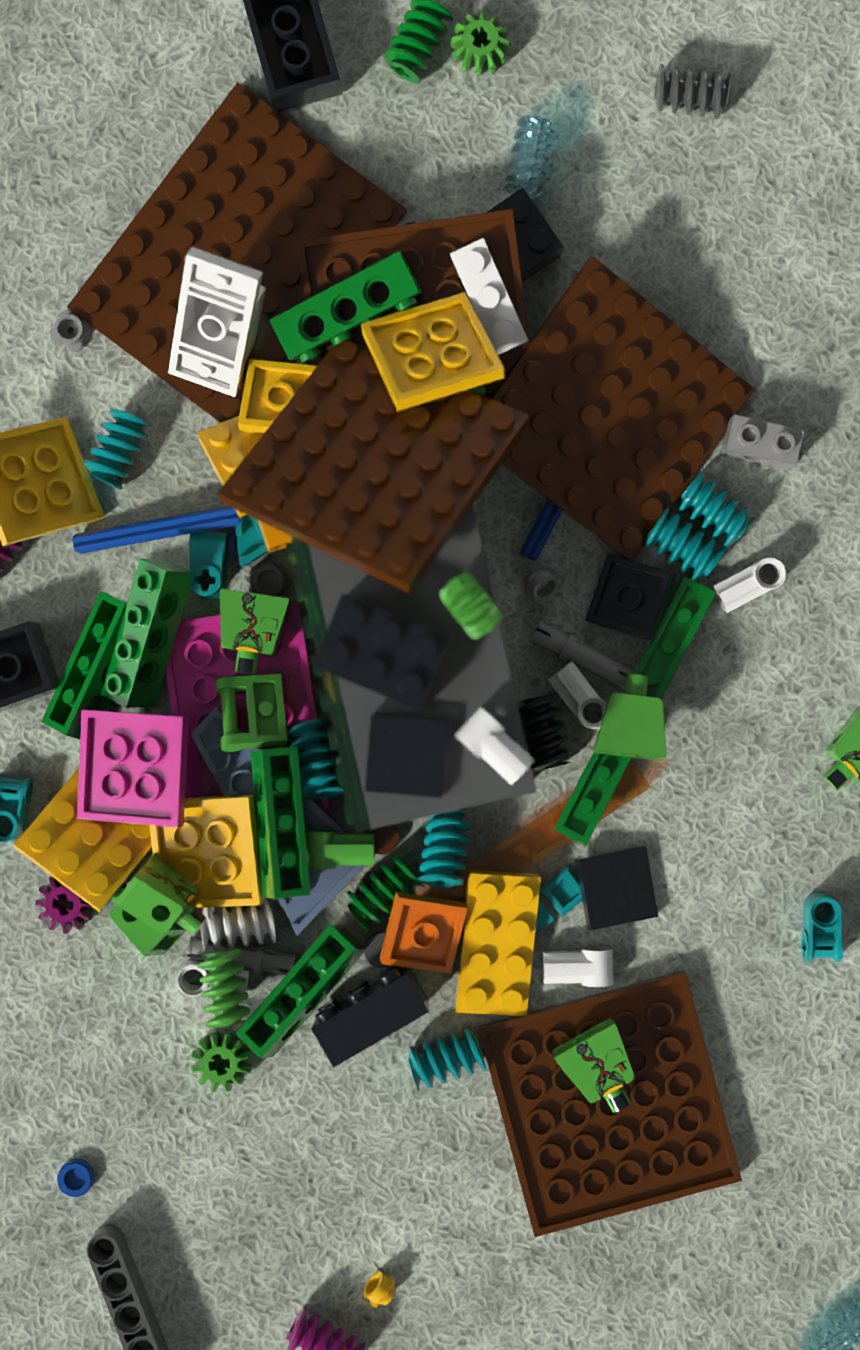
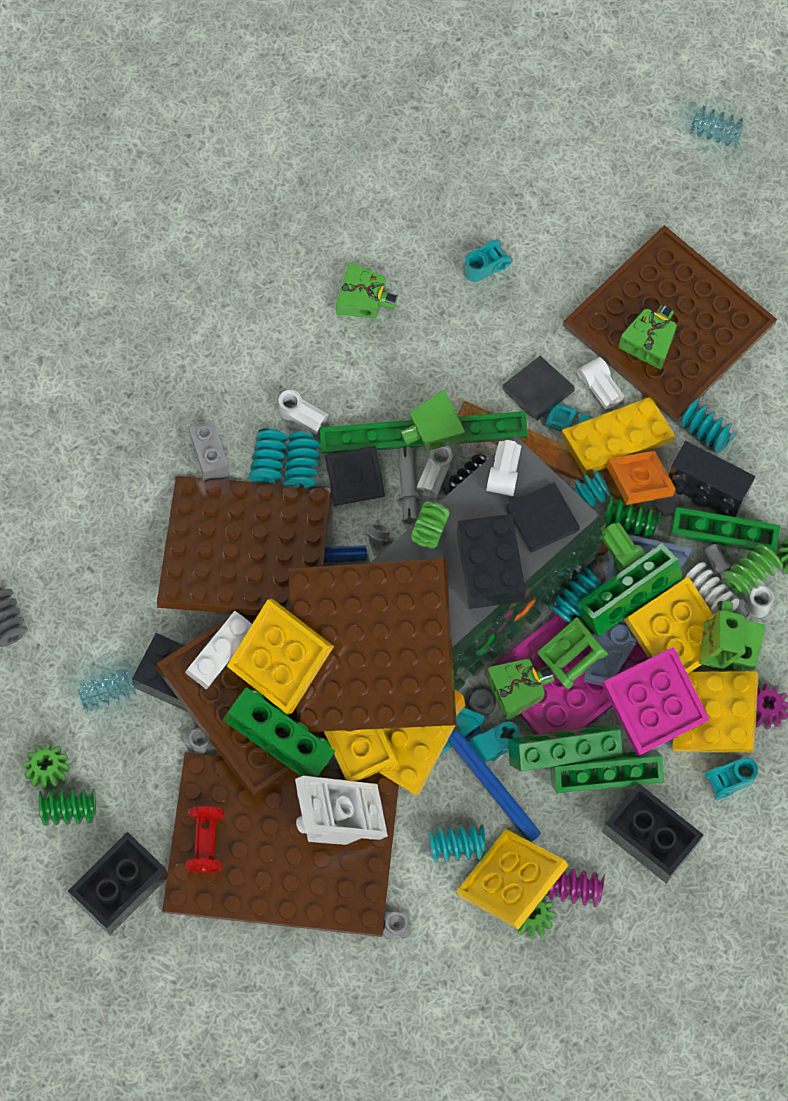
camera: 125 degrees left, 20 degrees down
(279, 161) = (205, 840): none -> red hose

